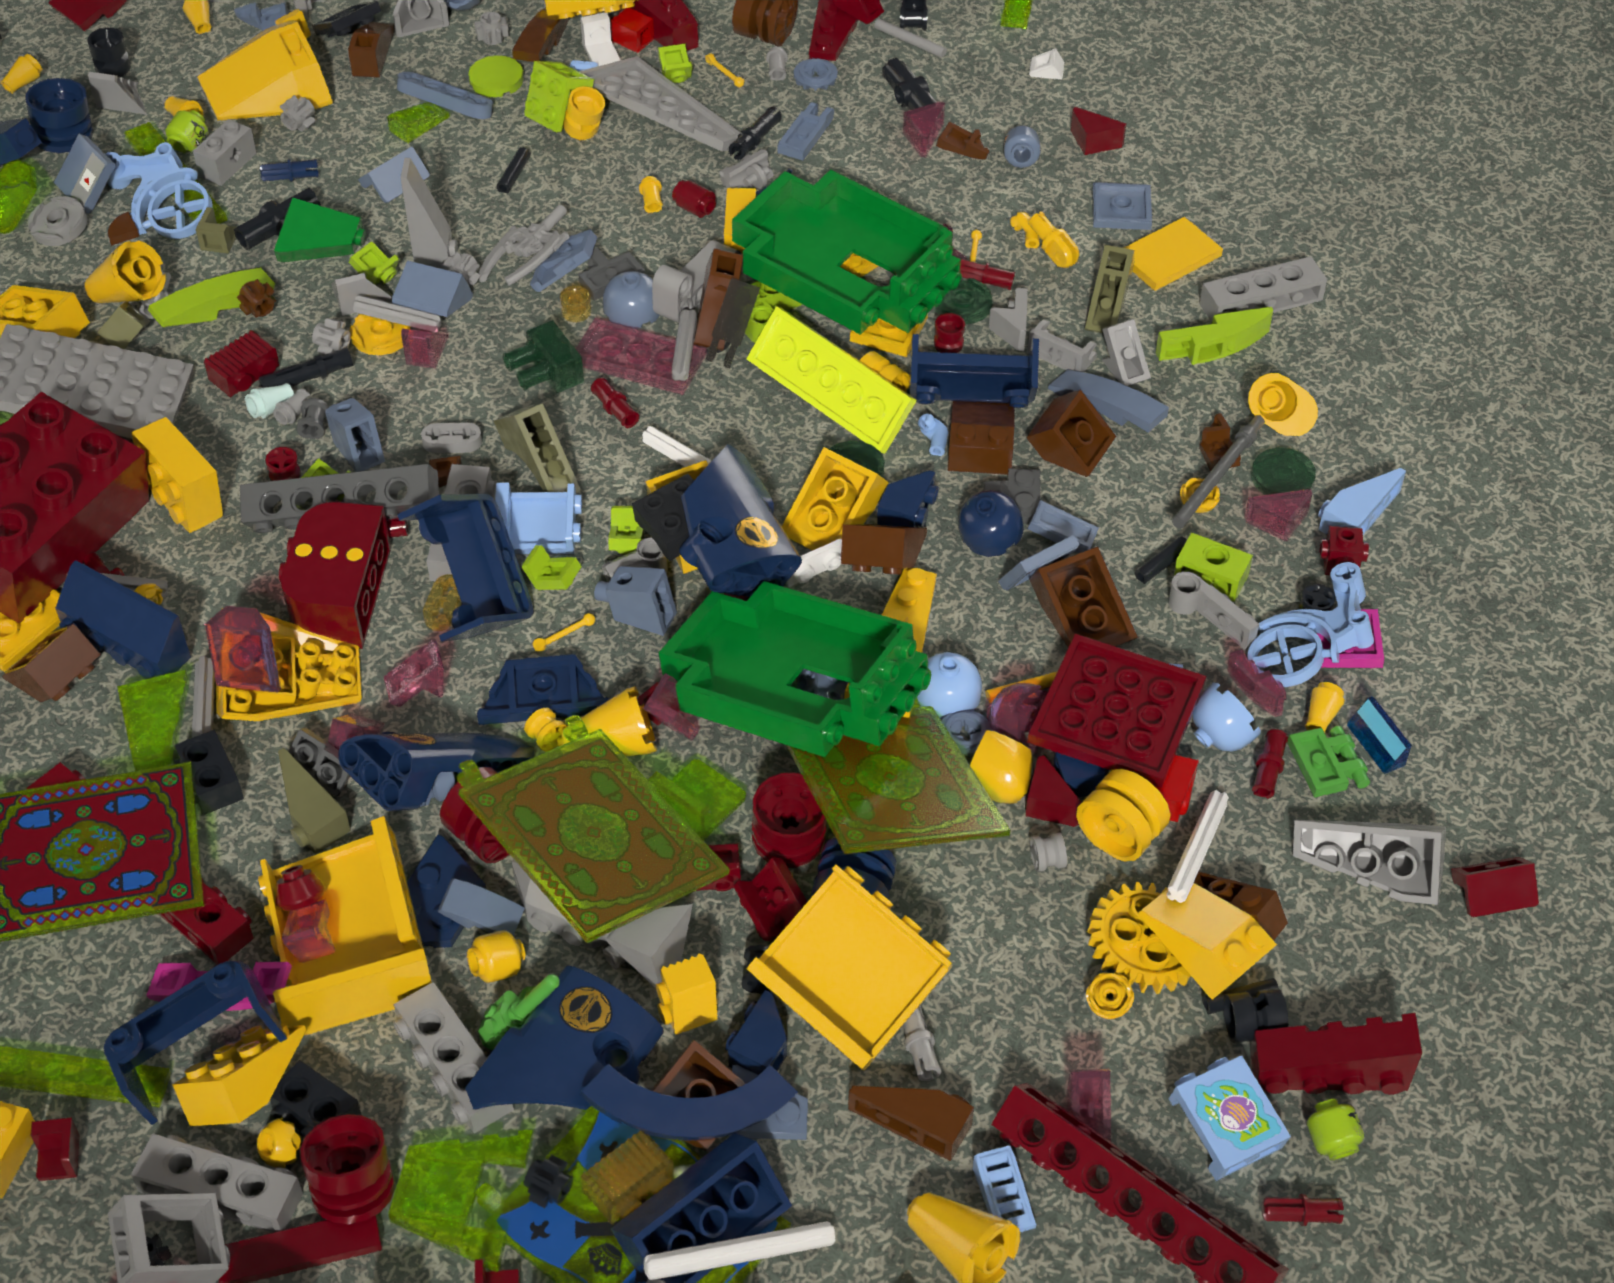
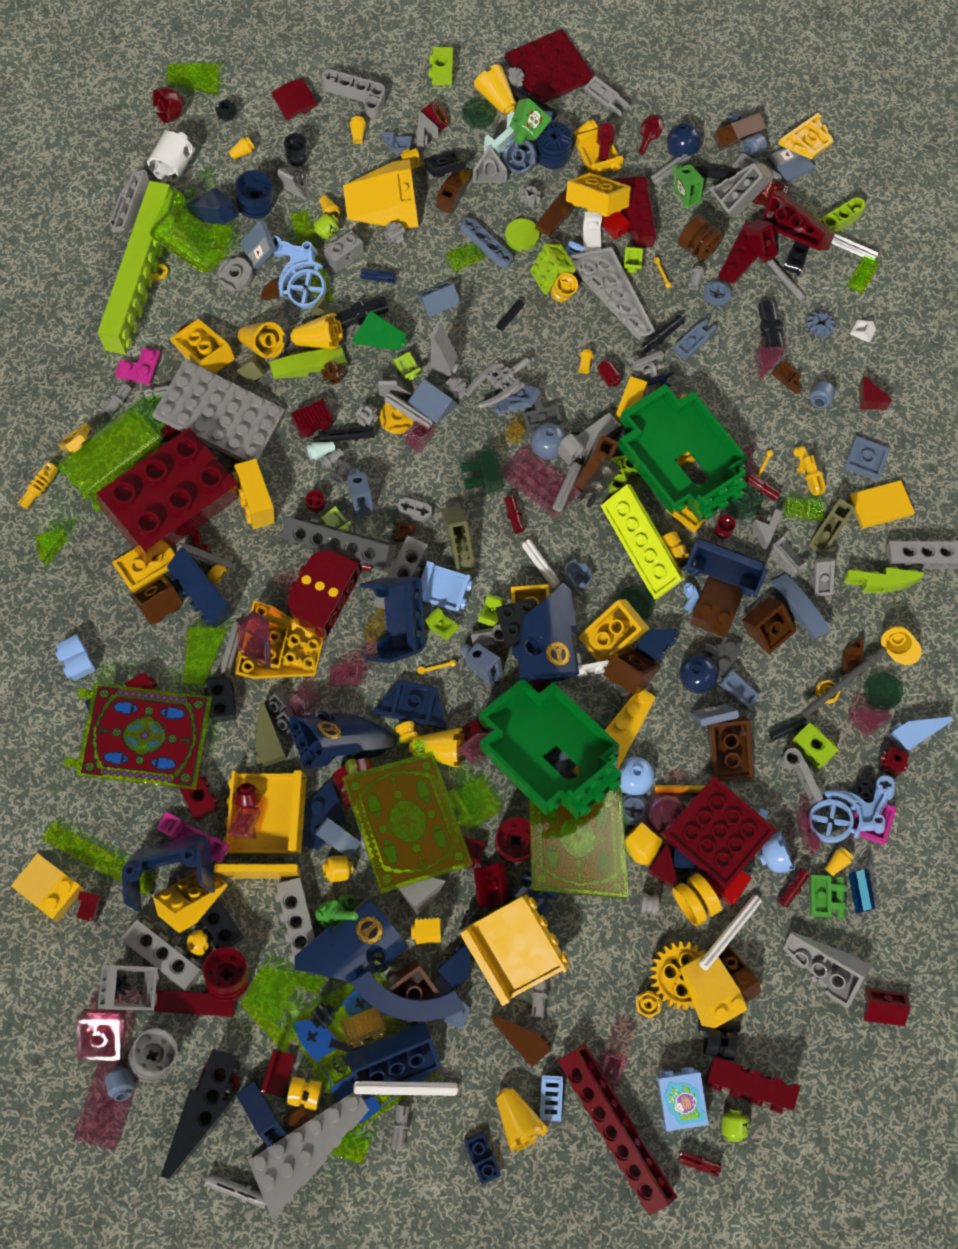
camera: 15 degrees right, 20 degrees up
(216, 253) = (319, 333): none -> yellow cone
(753, 446) = (577, 574): none -> sand blue hair
(982, 79) = (820, 330): none -> sand blue gear
(1065, 286) = (806, 510): none -> clear neon green slope

